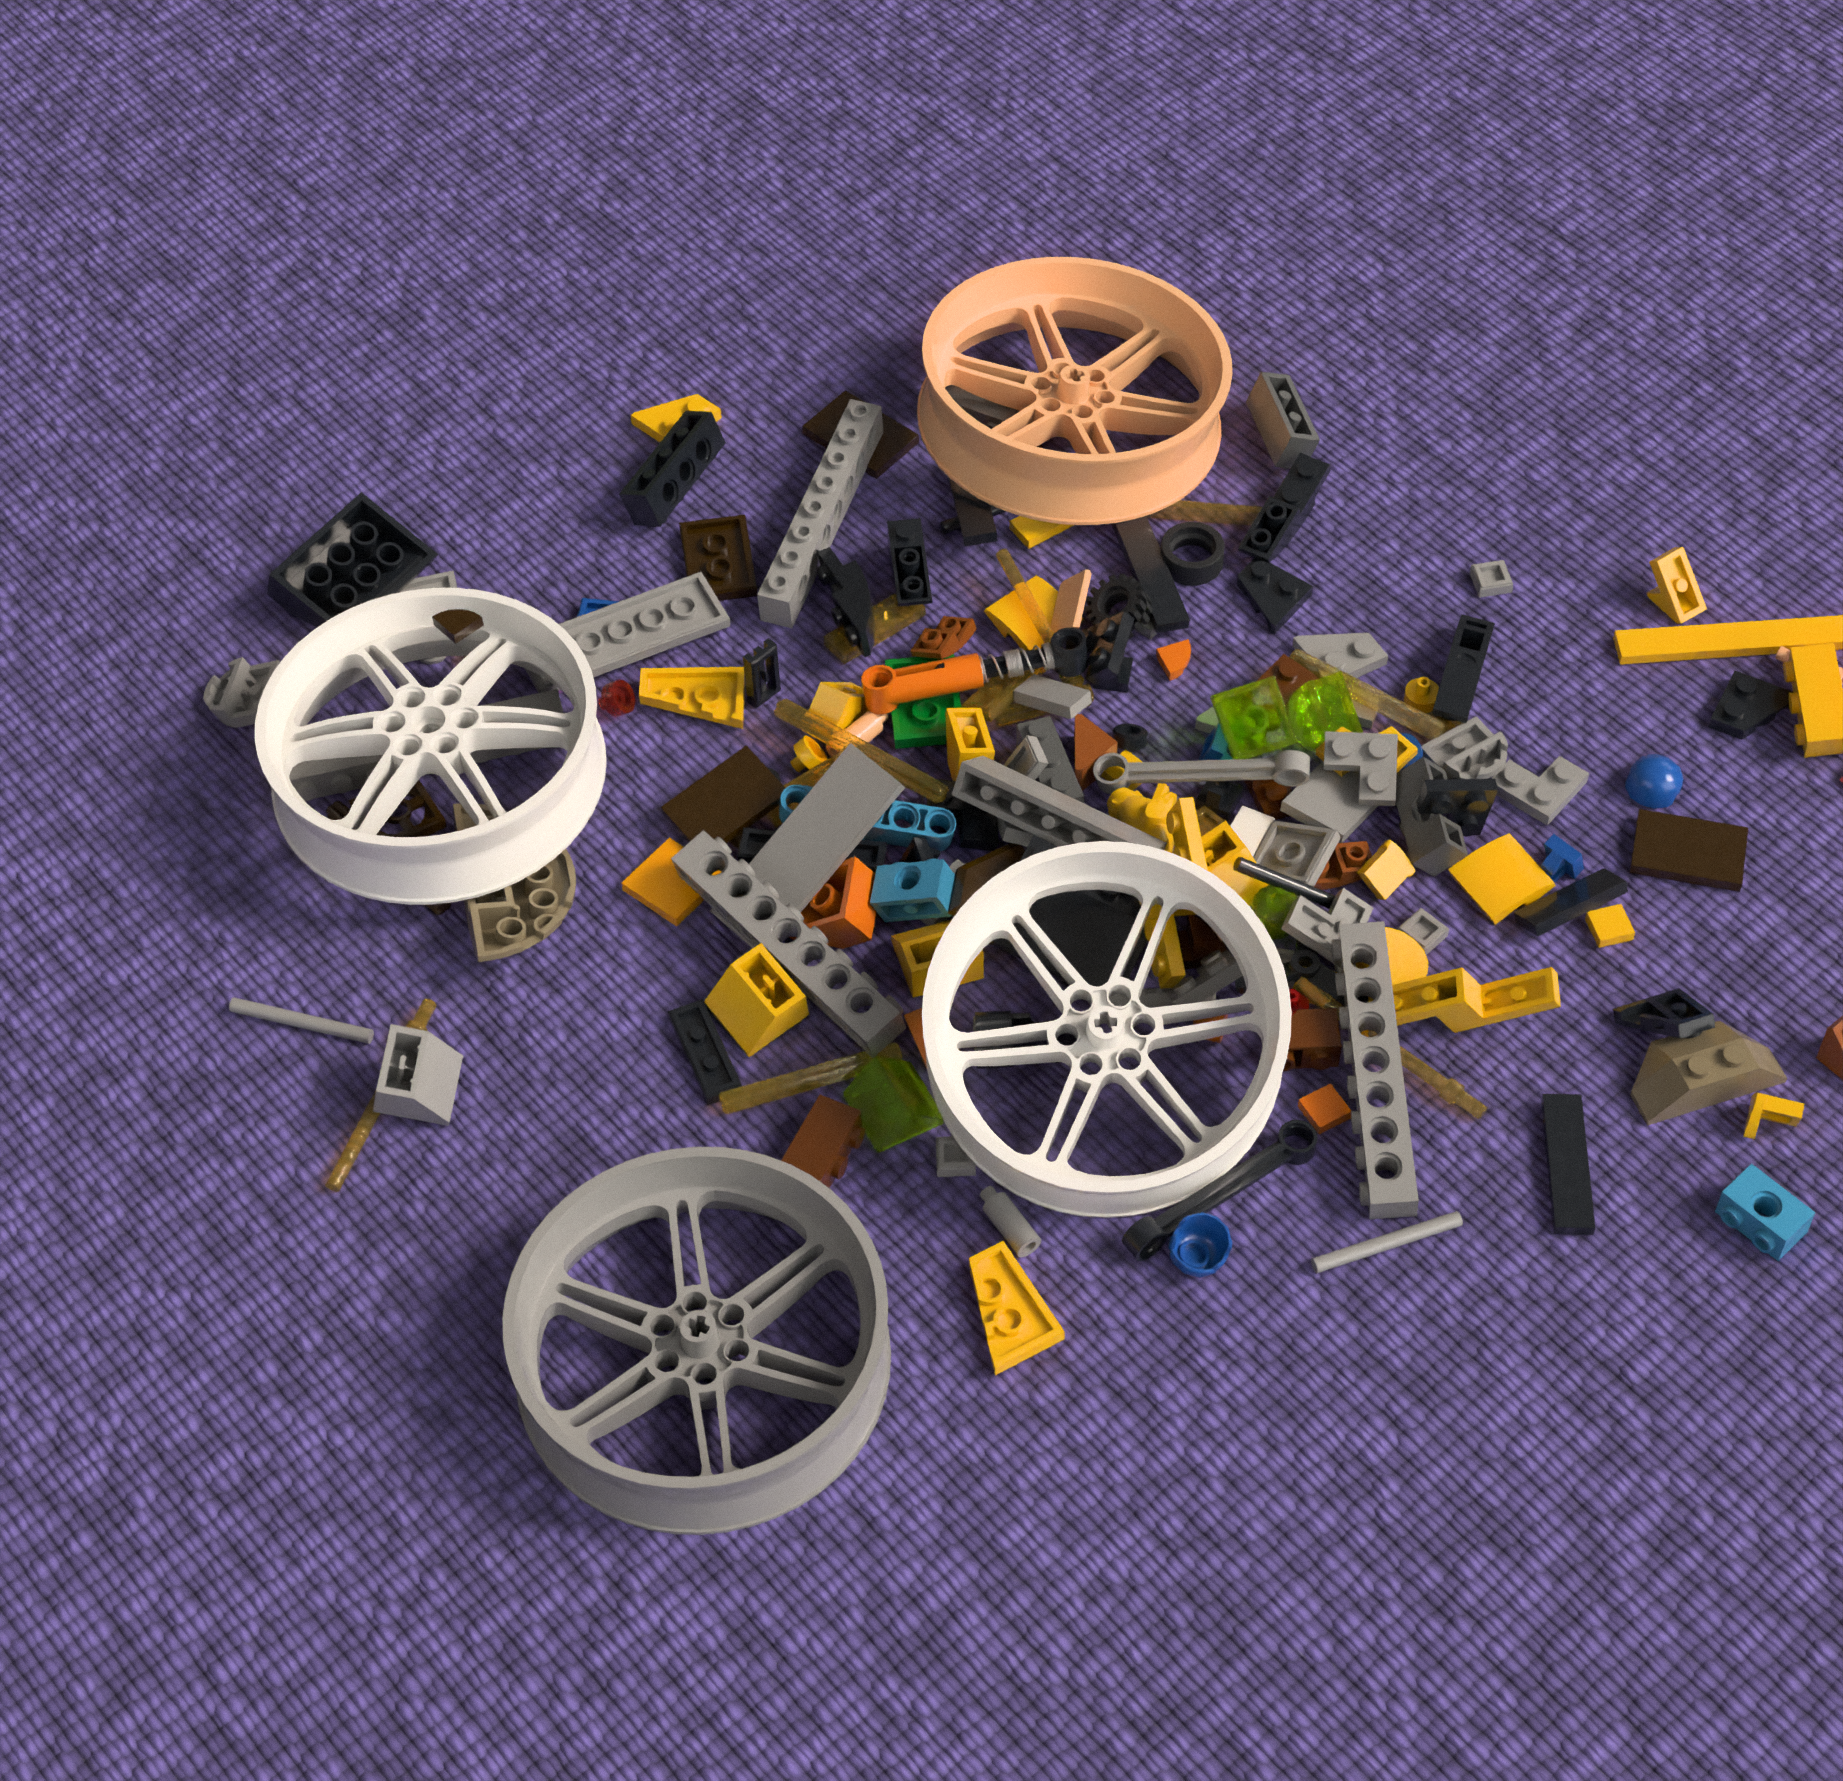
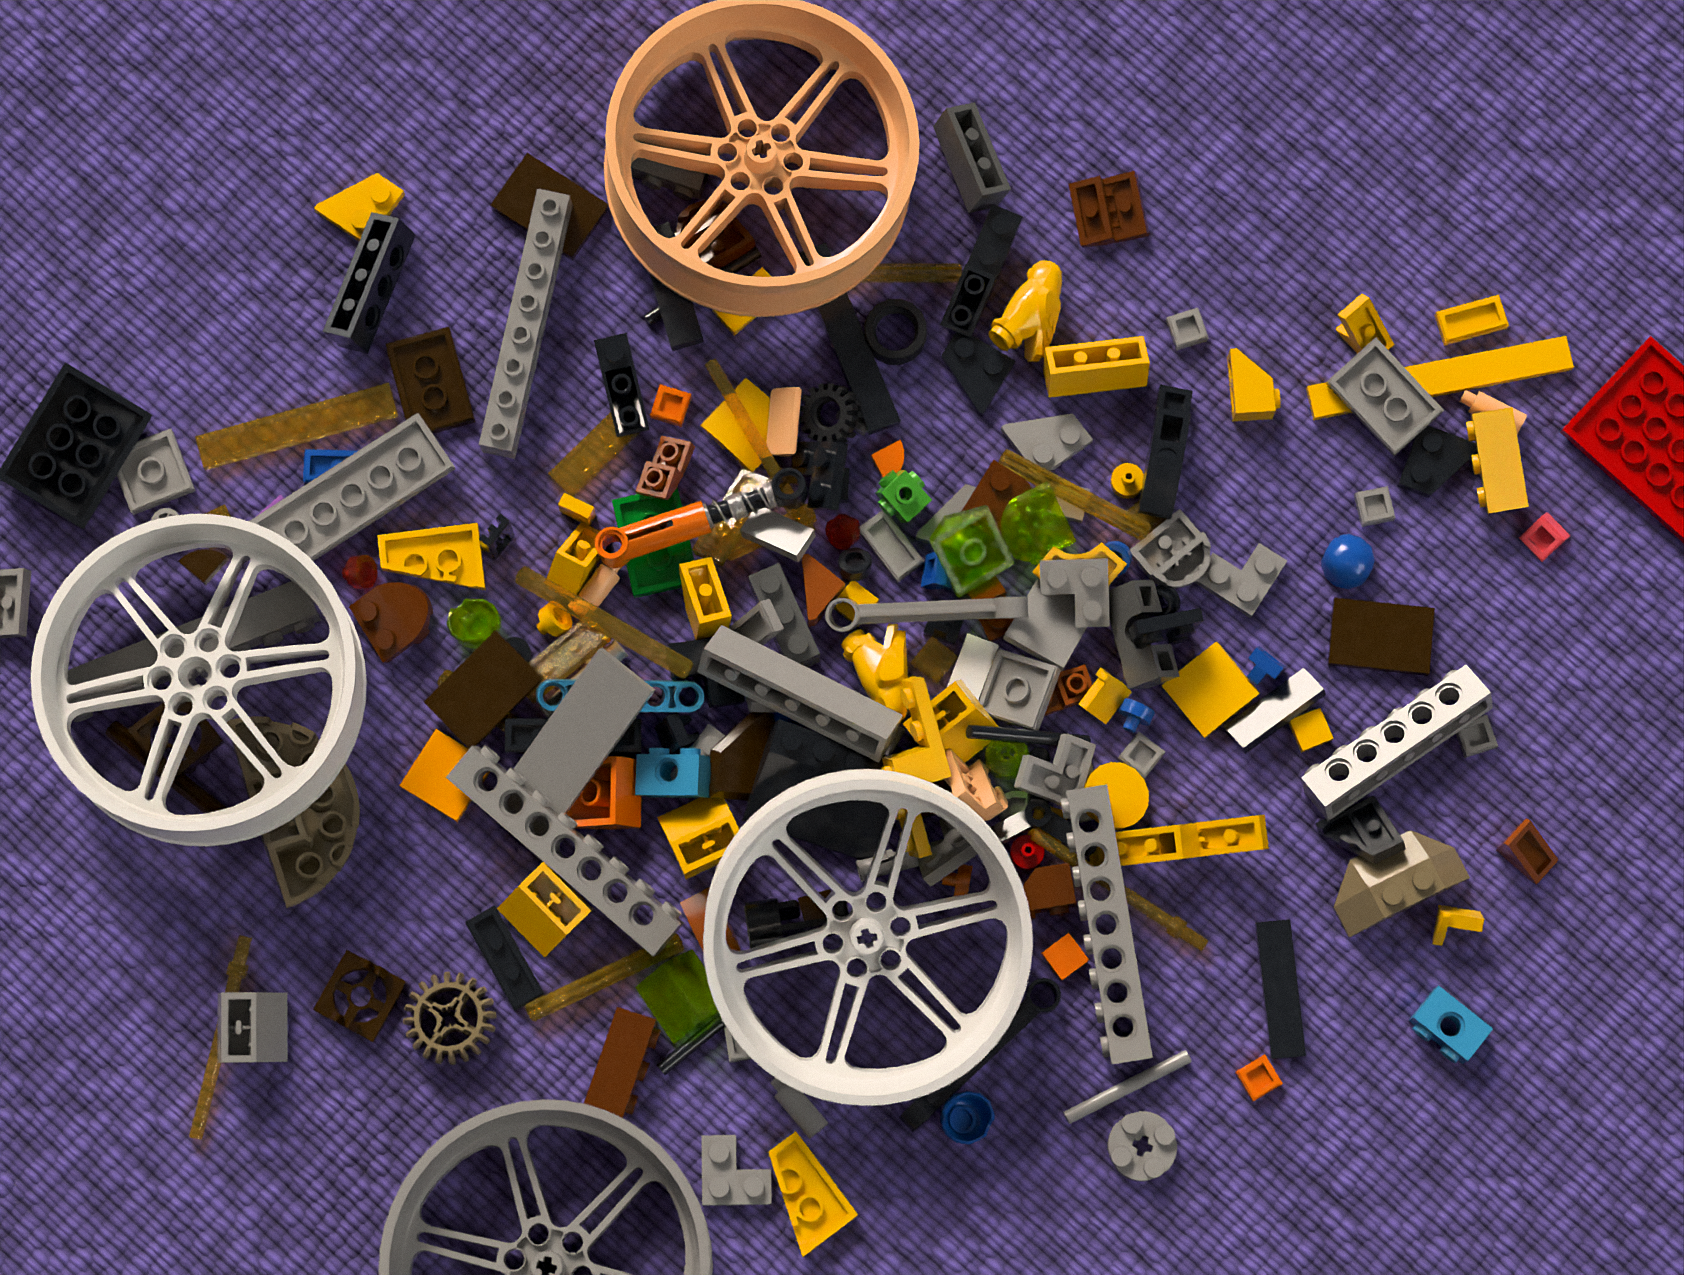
camera: 10 degrees left, 25 degrees up
(301, 1020) = (130, 966): light grey bar -> none
(564, 1046) = (367, 1029): none -> dark brown piece
(585, 580) = (296, 426): none -> clear yellow tile
(634, 1108) = (441, 1031): none -> dark tan gear
(644, 739) = (393, 617): none -> reddish brown slope
(722, 745) = (473, 622): none -> clear neon green hair
(847, 664) = (577, 509): none -> yellow tile
(850, 598) = (572, 436): black slope -> none
(901, 1149) = (691, 1044): none -> black bar
(917, 1292) = (724, 1183): none -> light grey plate
(956, 596) = (670, 405): none -> orange tile
(1119, 707) = (843, 531): none -> clear red tile
(1168, 728) = (891, 546): none -> light grey tile
(1185, 679) = (913, 498): none -> bright green brick
(1331, 544) = (1031, 313): none -> yellow animal
(1395, 591) = (1096, 366): none -> yellow brick
(1400, 1281) = (1124, 1155): none -> light grey plate
(1416, 479) = (1108, 209): none -> reddish brown slope
(1419, 889) = (1135, 714): none -> blue tile
(1539, 1248) = (1258, 1078): none -> orange tile
(1555, 627) = (1250, 389): none -> yellow slope
(1683, 739) = (1374, 506): none -> light grey tile
(1697, 641) = (1384, 396): none -> light grey tile
(1705, 938) = (1391, 758): none -> brick
(1788, 595) = (1471, 320): none -> yellow tile
(1793, 948) = (1477, 737): none -> light grey tile

